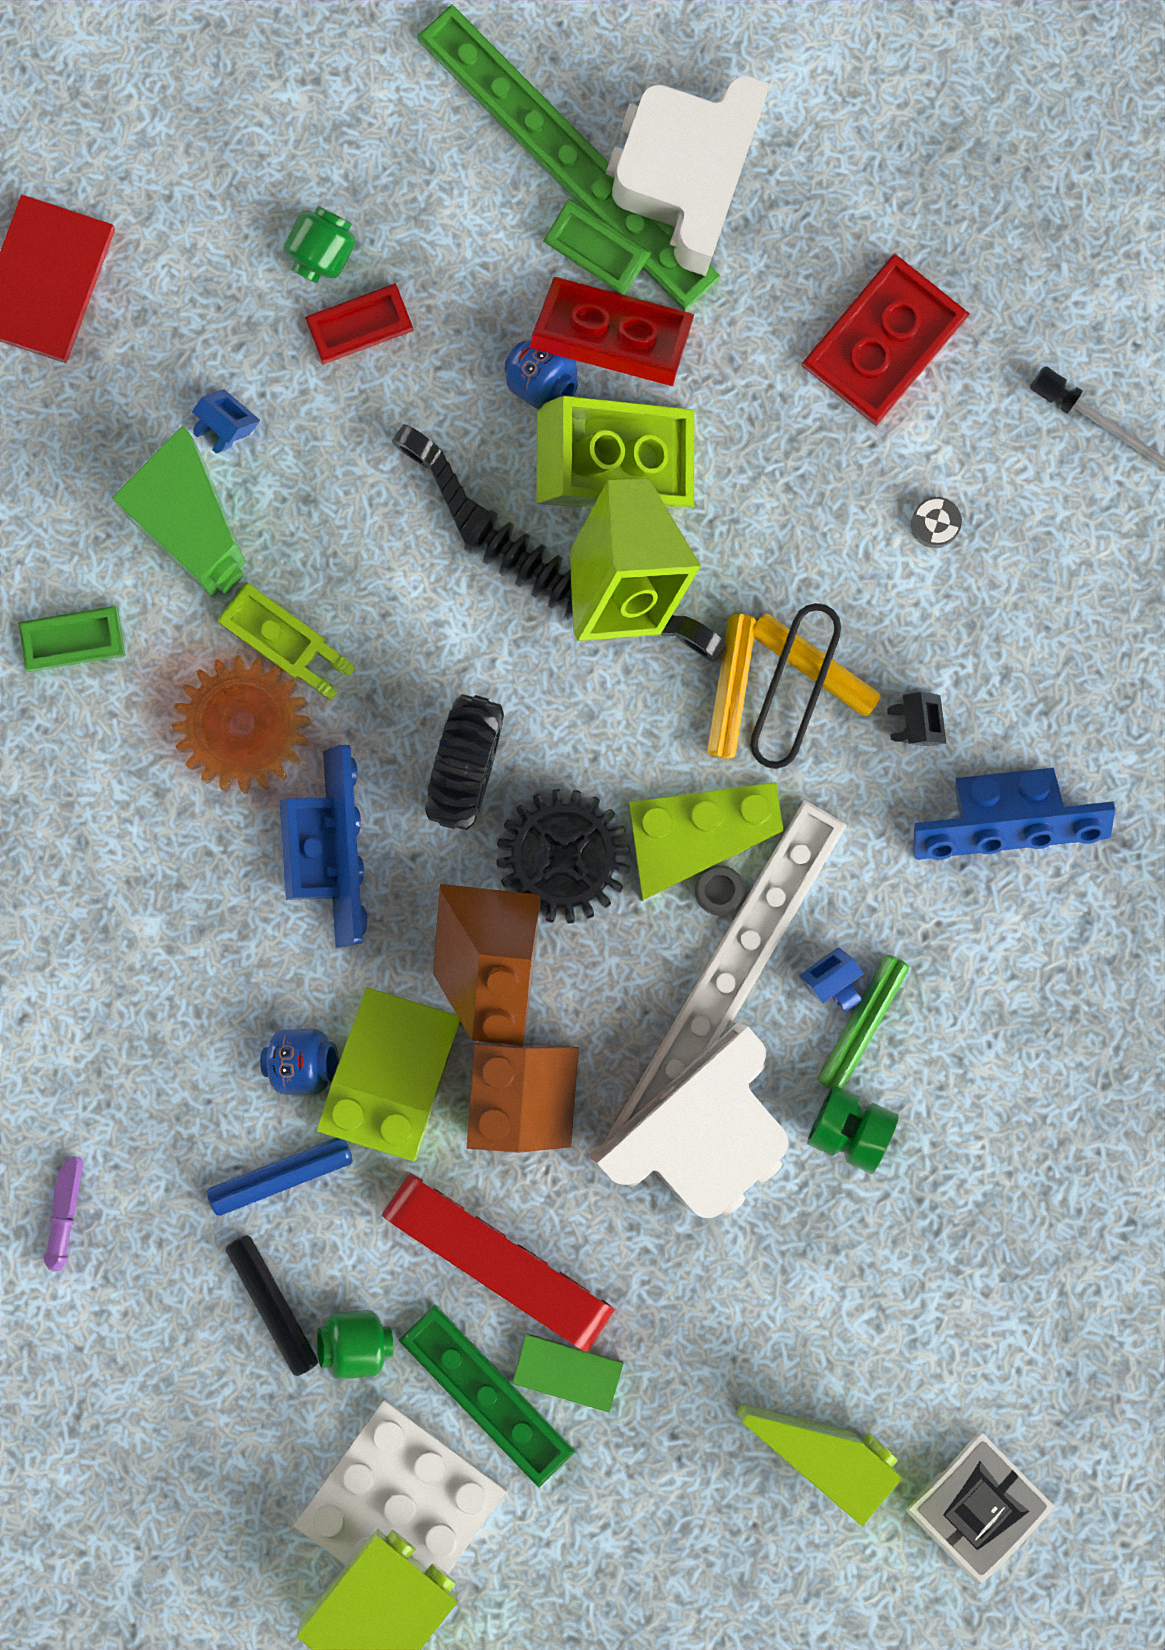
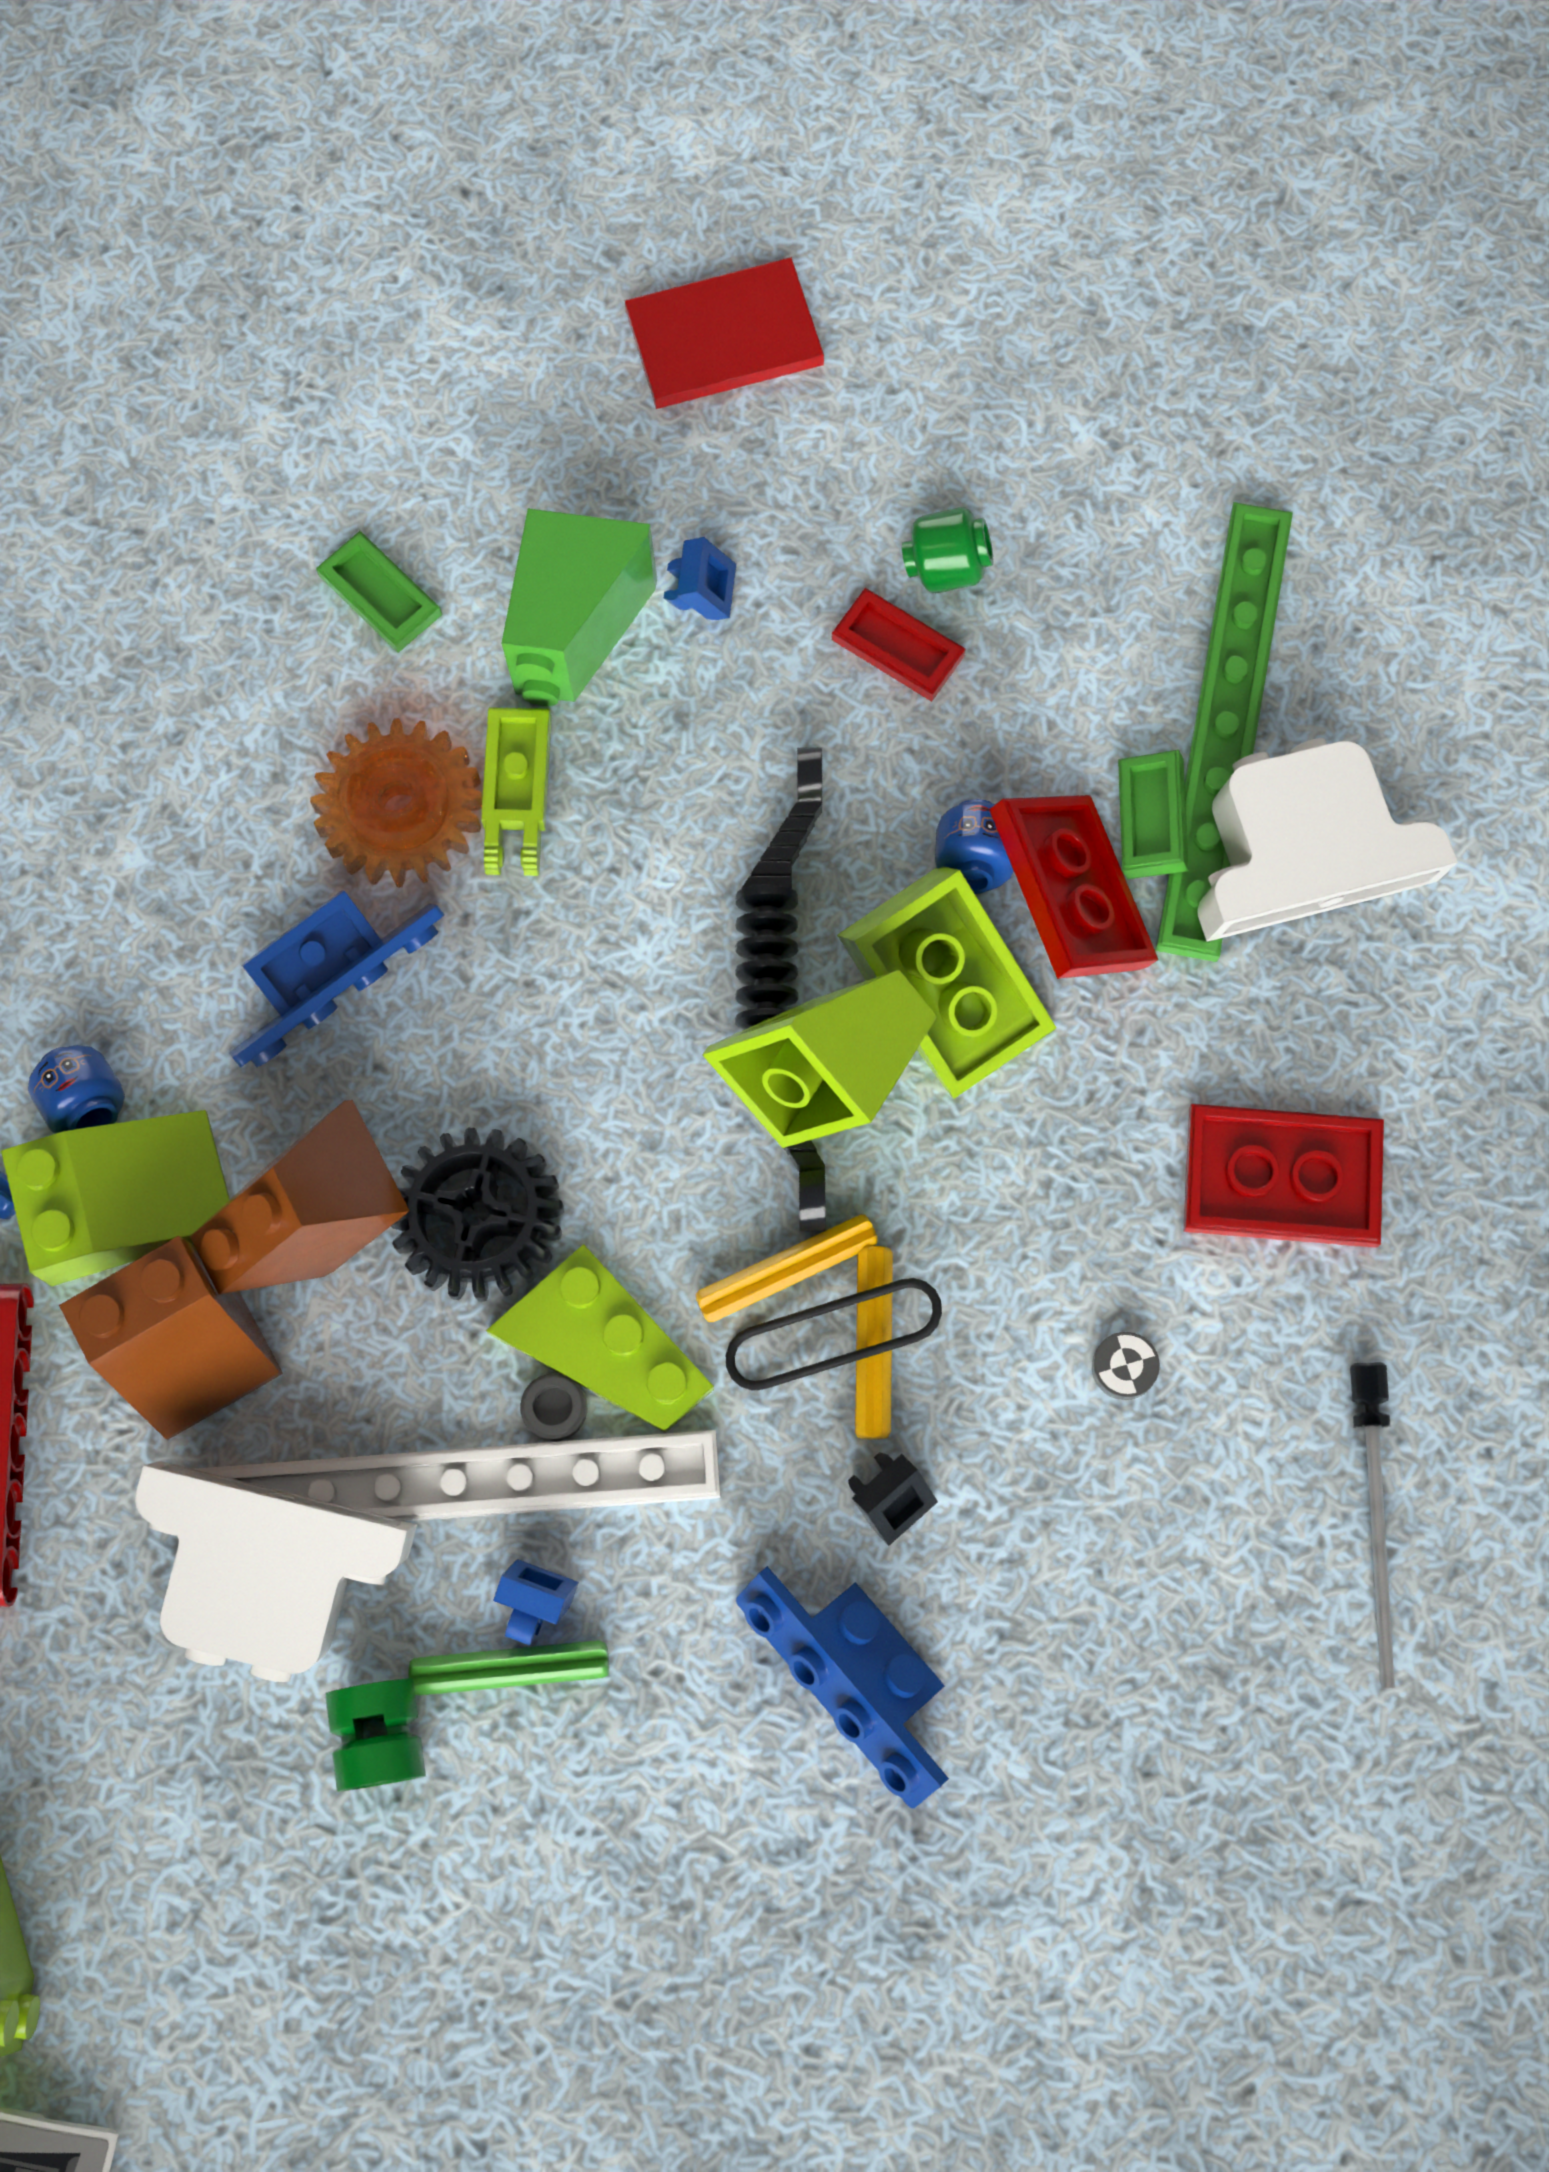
camera: 60 degrees right, 10 degrees down
(464, 761) = (502, 1038): black gear -> none

